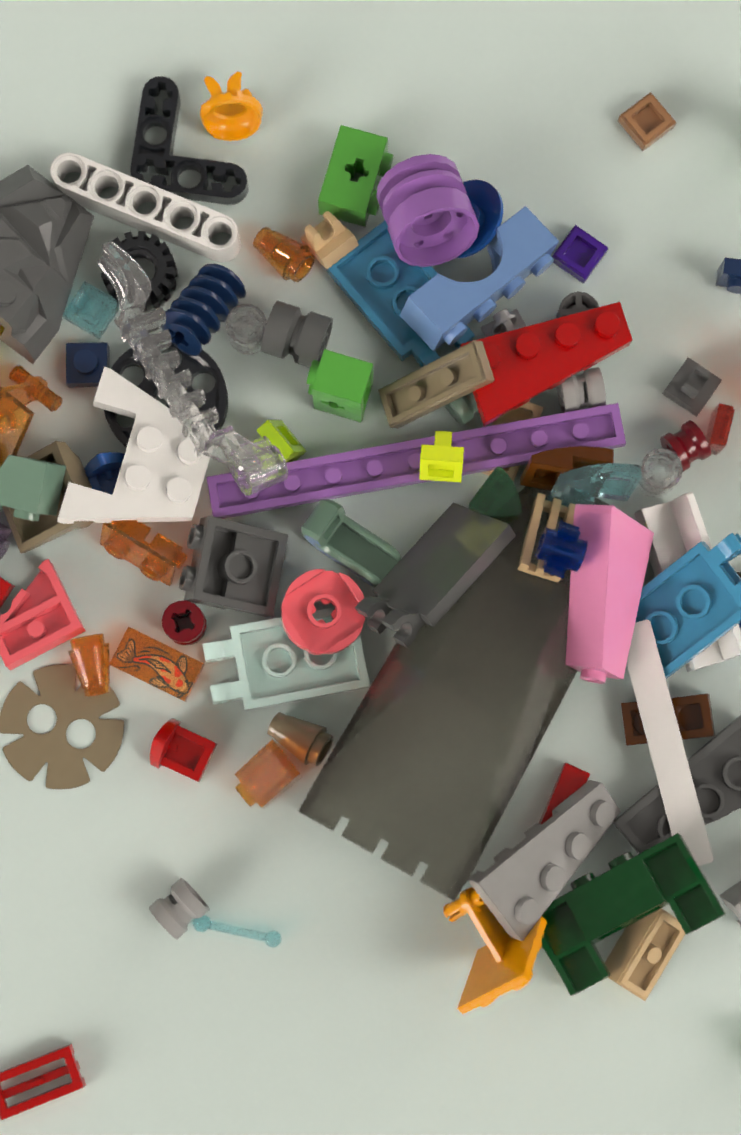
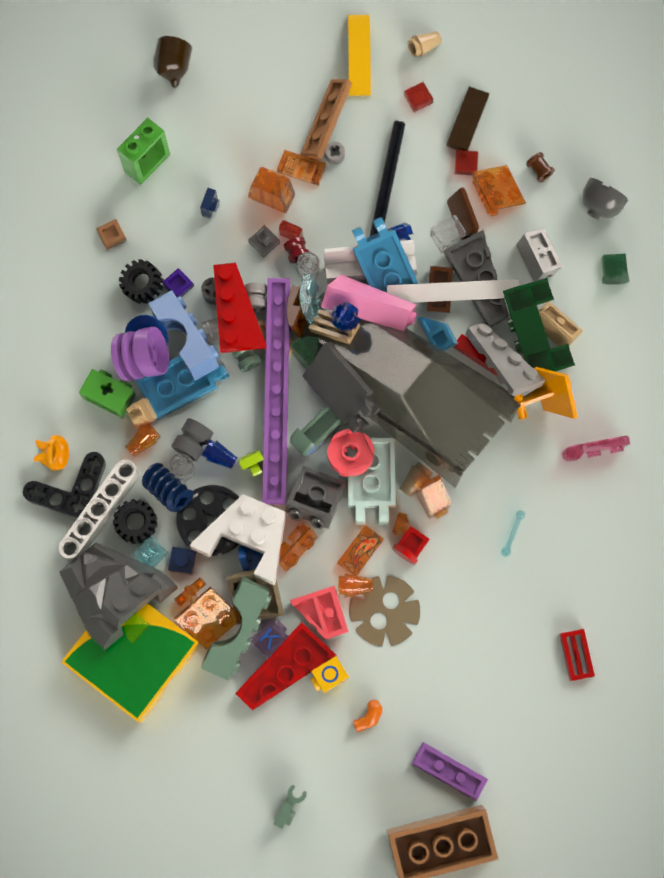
camera: 80 degrees left, 5 degrees down
(179, 908) = (496, 560): light grey wheel -> none
(187, 633) = (343, 534): dark red wheel -> none
(213, 725) = (401, 524): none -> clear orange tile
(252, 463) = (261, 474): clear piece -> none
(281, 387) = (219, 454): none -> clear blue cone
(340, 385) = (227, 419): bright green brick -> none
(419, 1057) = (594, 448): none -> clear pink hinge
(436, 384) = (238, 369): dark tan tile -> none
(441, 460) = (280, 373): neon yellow tile -> none
(567, 168) = (132, 273): none -> black tyre
(580, 731) = (438, 333): none -> dark azure tile

